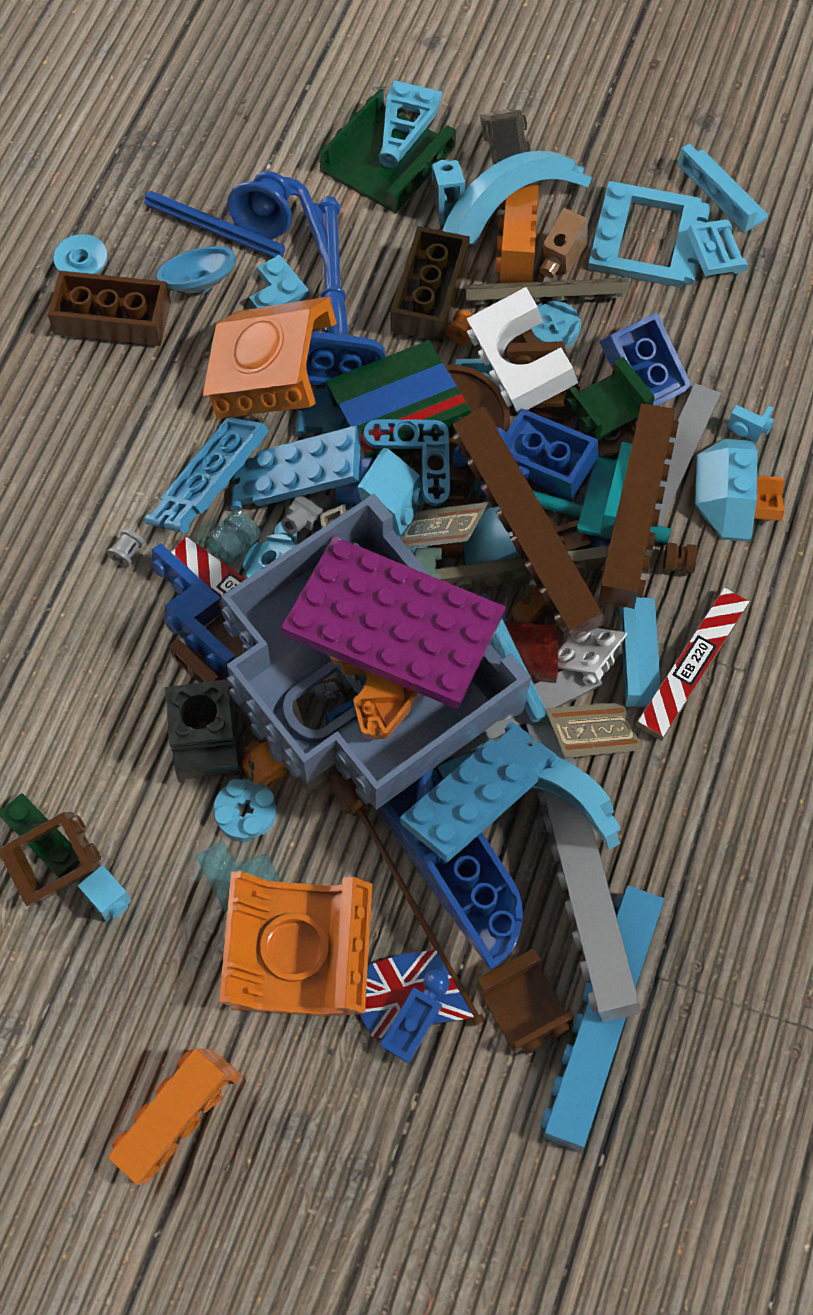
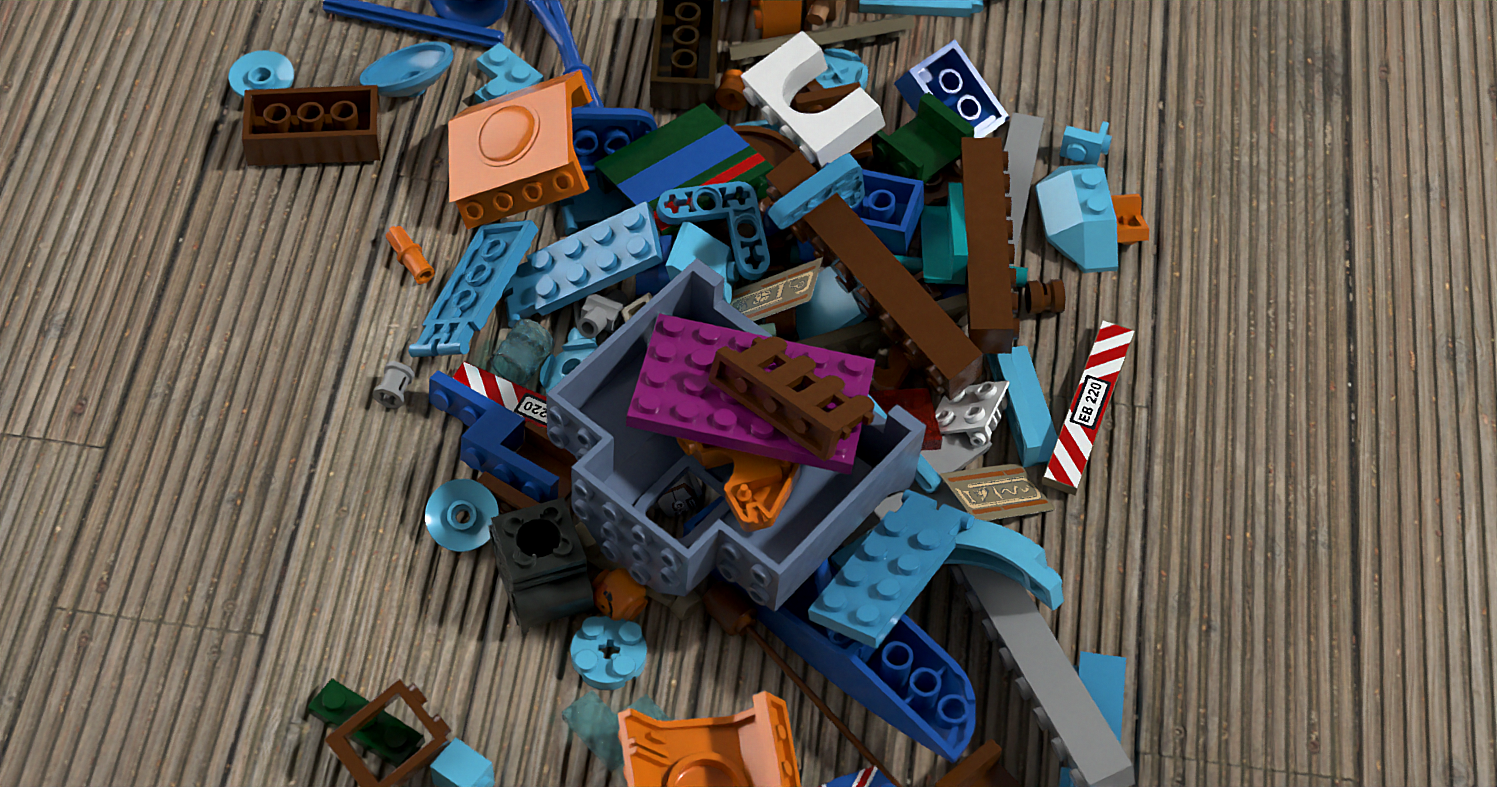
camera: 15 degrees left, 10 degrees down
(139, 671) = (448, 502): none -> medium azure dish
(164, 434) = (410, 254): none -> orange axle
(414, 646) = (776, 402): none -> reddish brown fence
(513, 437) = (840, 177): none -> dark azure beam

